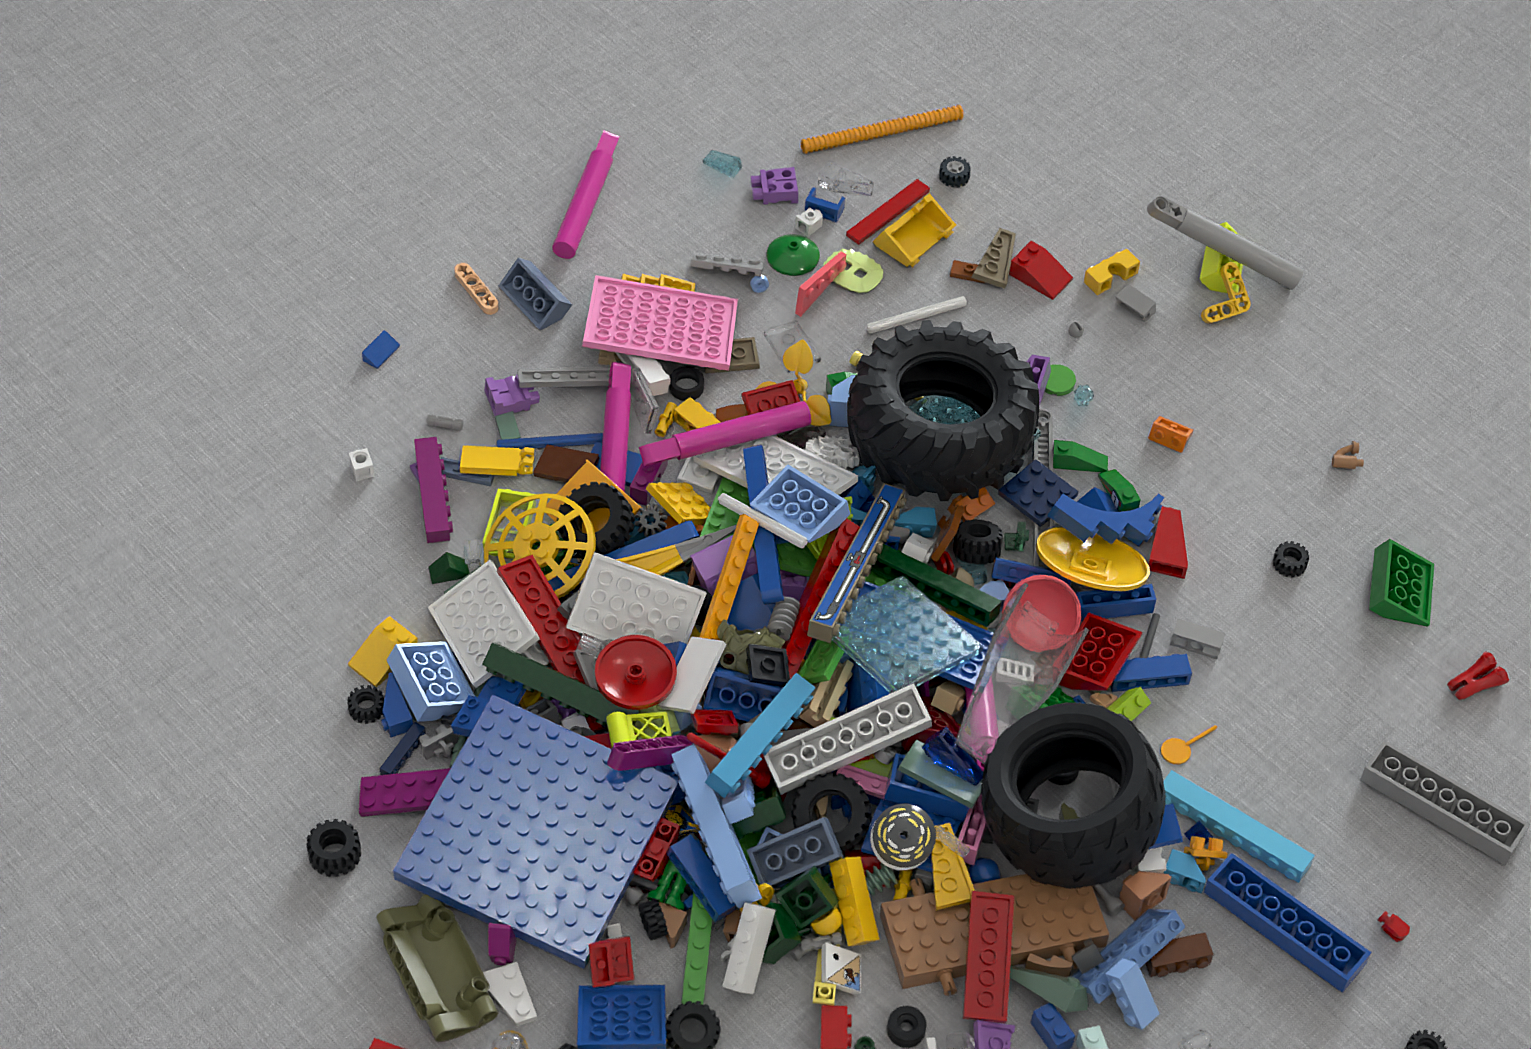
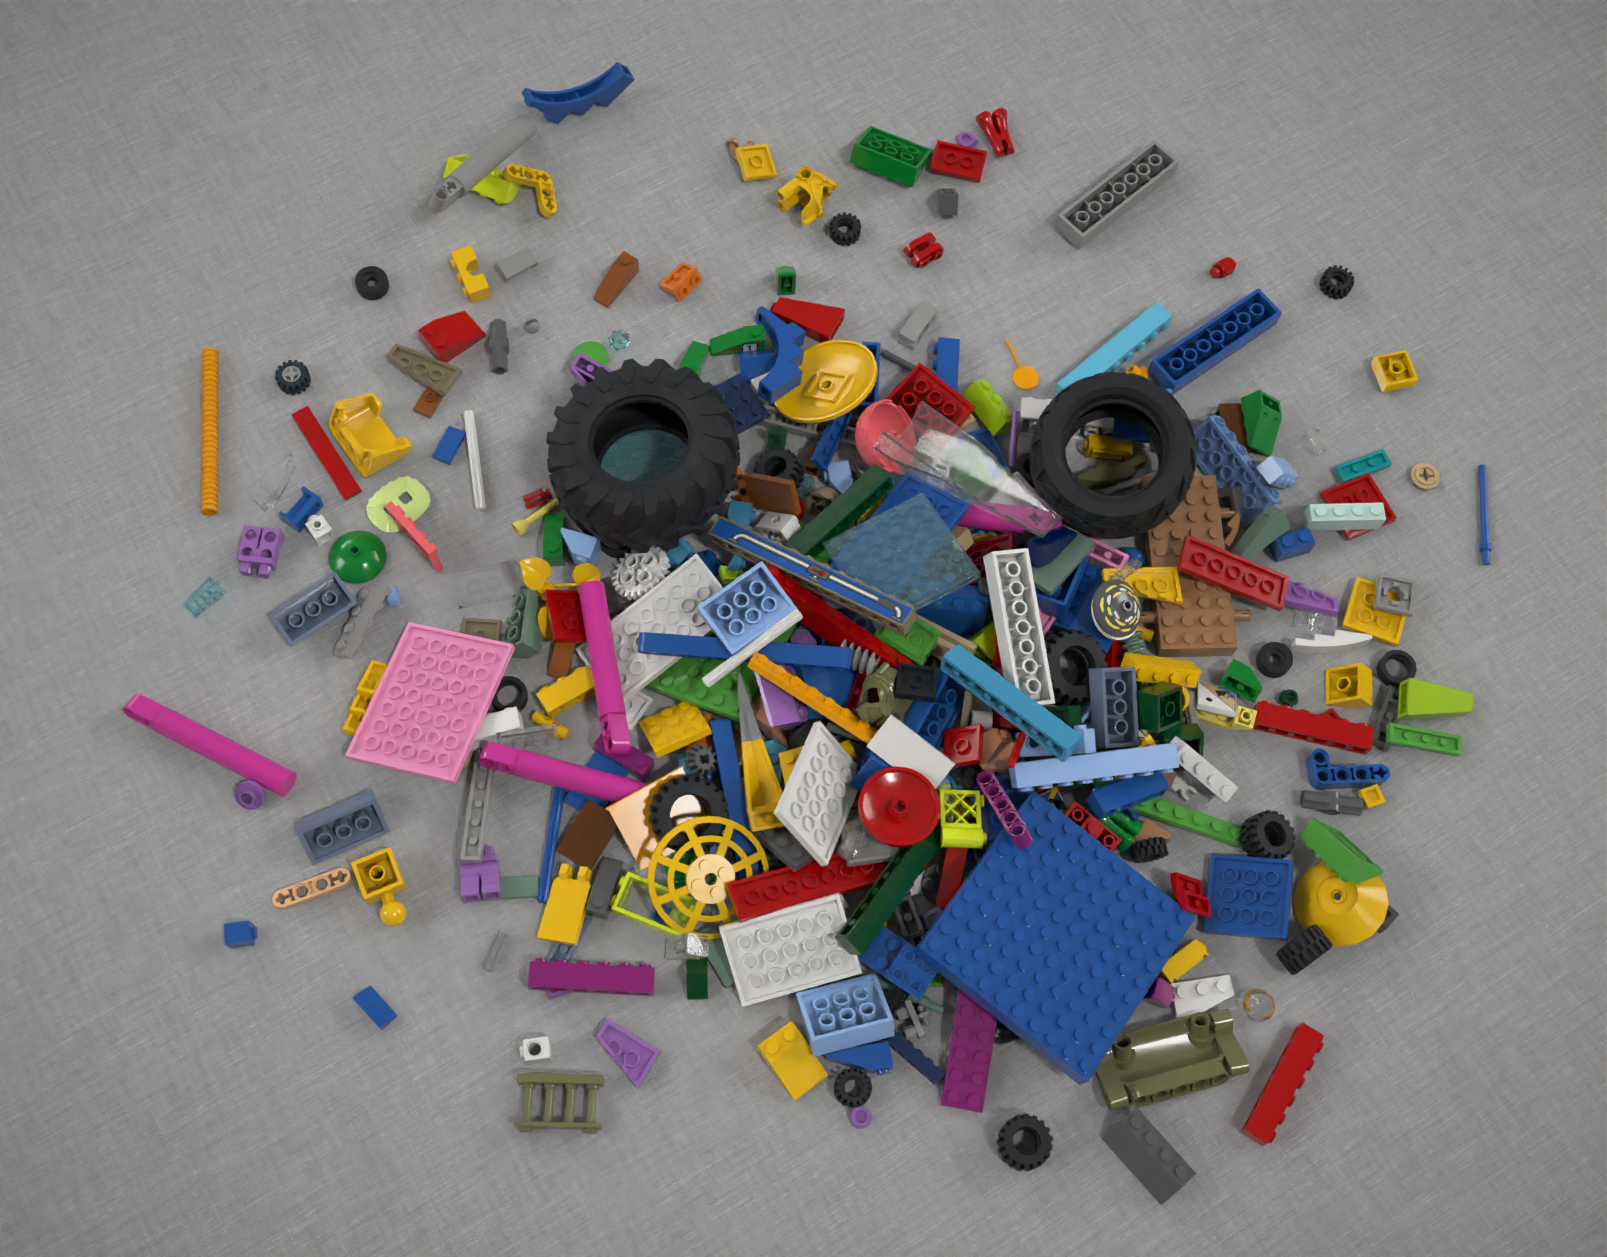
camera: 80 degrees left, 15 degrees up
(335, 493) = (571, 1083): none -> olive fence
(339, 961) = (1148, 1155): none -> dark grey slope
(340, 717) = (860, 1117): none -> medium lavender tile
(372, 531) = (628, 1051): none -> medium lavender wing
(425, 249) = (240, 934): none -> blue brick
(491, 325) = (374, 889): none -> yellow brick
(500, 528) = (656, 916): none -> blue piece
(517, 481) = (604, 888): none -> dark grey slope
(541, 967) = (1183, 960): none -> yellow window
(548, 228) = (250, 795): none -> medium lavender plate
(729, 229) = (312, 609): none -> sand blue slope
(745, 380) = (523, 624): none -> sand green wedge
(870, 988) = (1241, 680): none -> green slope
(925, 294) = (449, 445): none -> blue tile
(1041, 307) = (499, 346): none -> dark grey piece
(1074, 212) = (372, 292): none -> black tyre
(1152, 381) = (617, 279): none -> dark orange slope
(1195, 977) = (1261, 421): none -> green slope
(1205, 514) = (785, 280): none -> green slope
(1293, 631) = (923, 250): none -> red brick
(1311, 513) = (810, 190): none -> yellow helmet
(1337, 468) = (756, 162): none -> yellow tile
(1345, 312) = (580, 99): none -> blue arch
(1364, 643) = (947, 202): none -> dark grey slope
(1423, 648) = (958, 161): none -> red plate
(1454, 654) = (966, 139): none -> medium lavender tile

